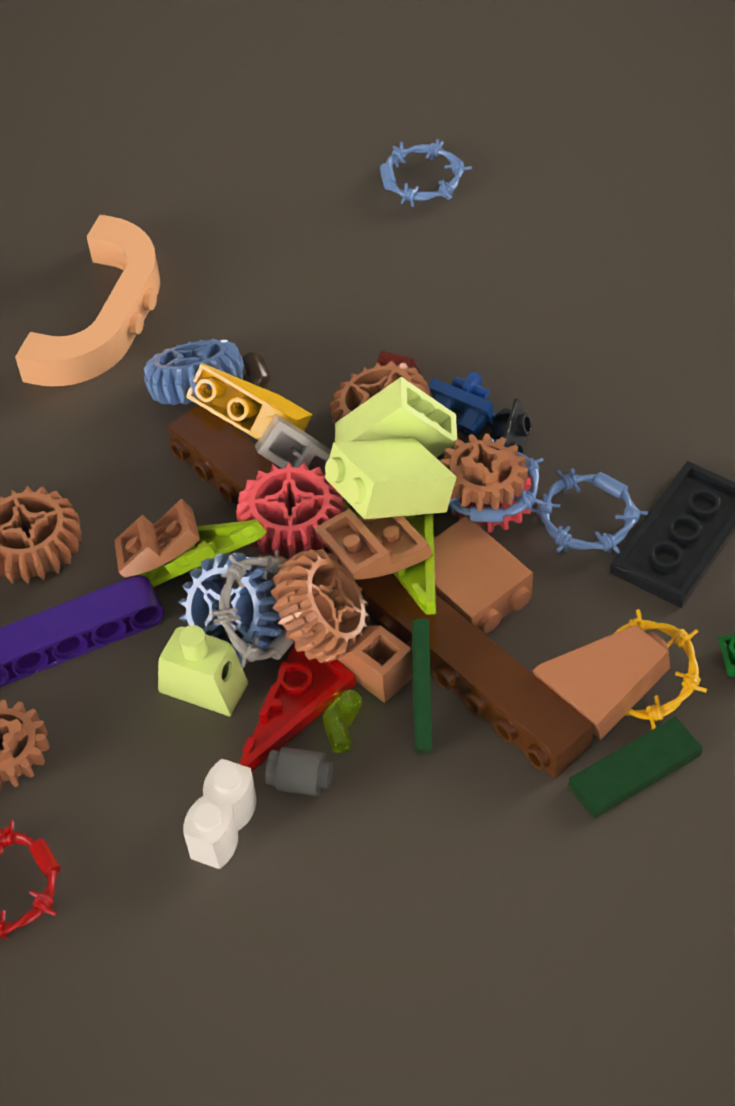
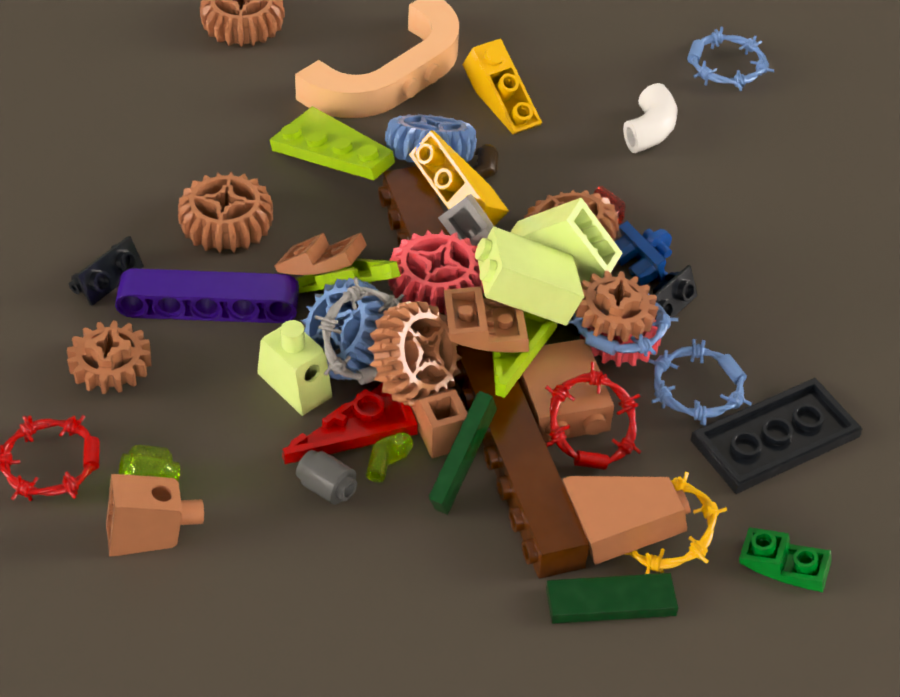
camera: 20 degrees right, 5 degrees down
(96, 416) = (332, 144): none -> lime wing
(116, 851) = (149, 461): none -> clear neon green head
(146, 898) = (147, 514): none -> nougat torso
(220, 813) = (244, 479): white brick -> none
(225, 287) = (501, 86): none -> yellow slope
(395, 262) = (656, 122): none -> white cylinder
(498, 626) = (558, 436): none -> red piece

